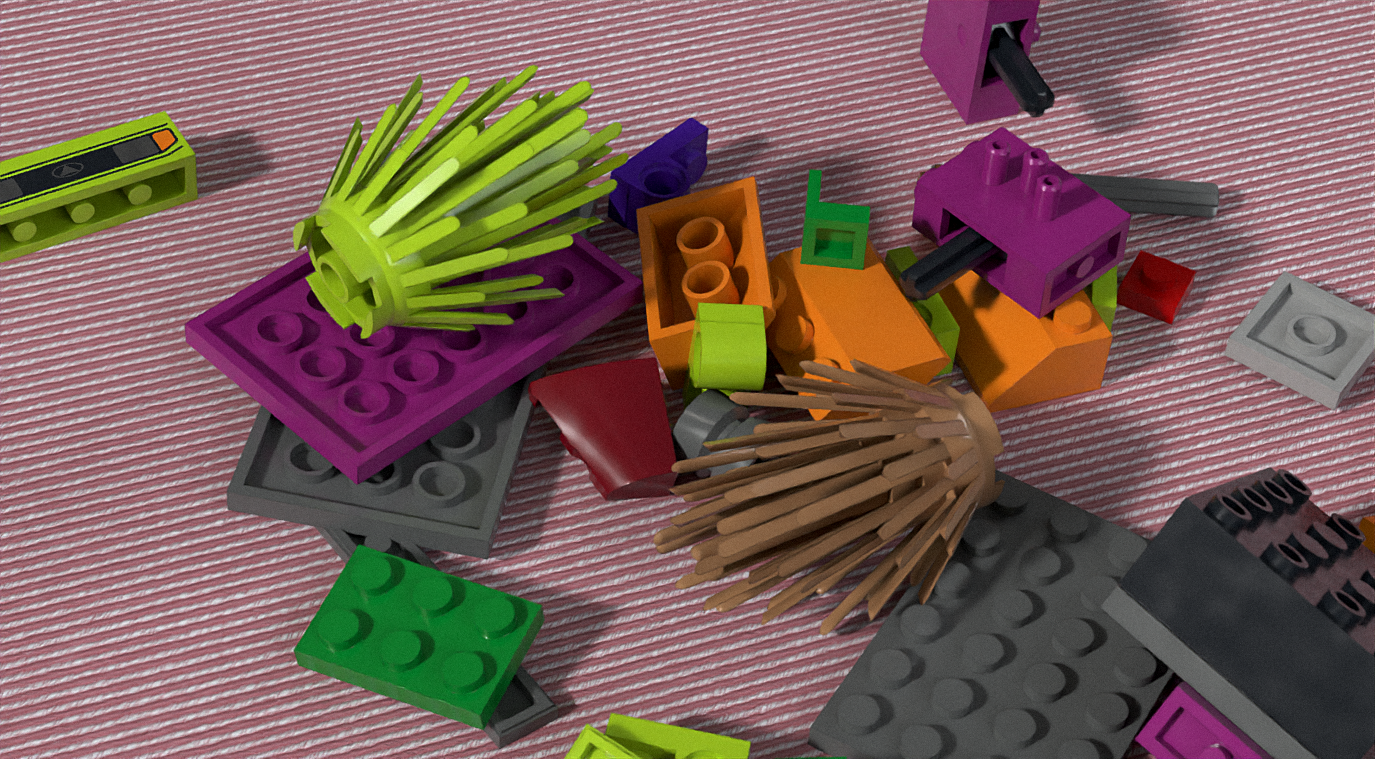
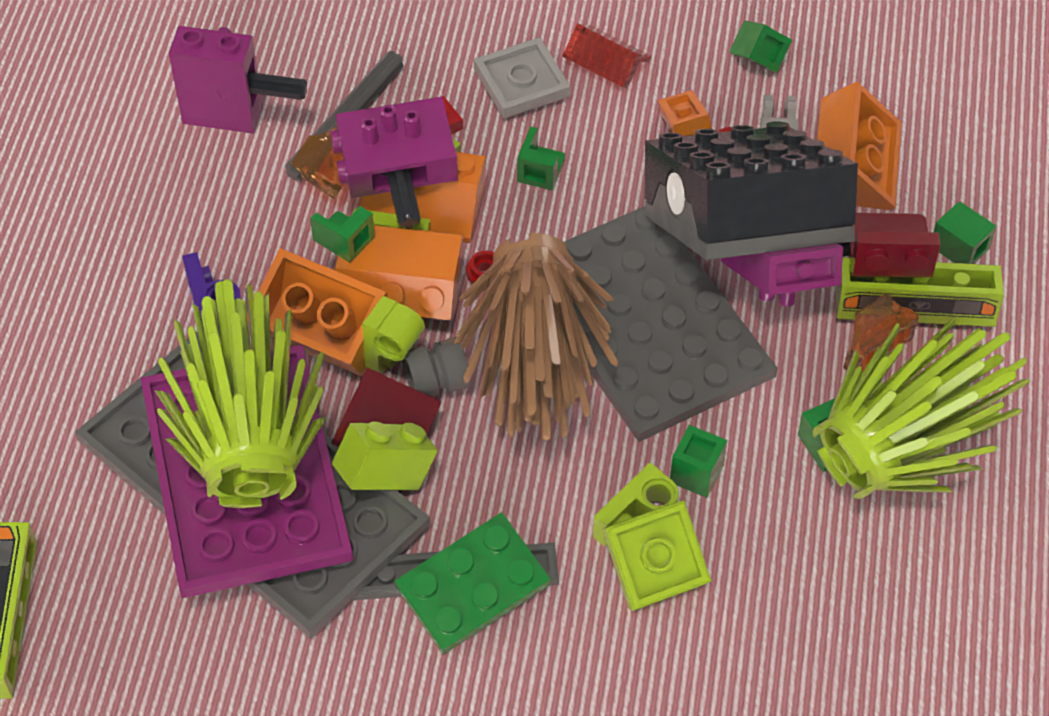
camera: 55 degrees left, 10 degrees up
(533, 439) = (384, 456): none -> lime brick
(1181, 418) = (537, 164): none -> green panel

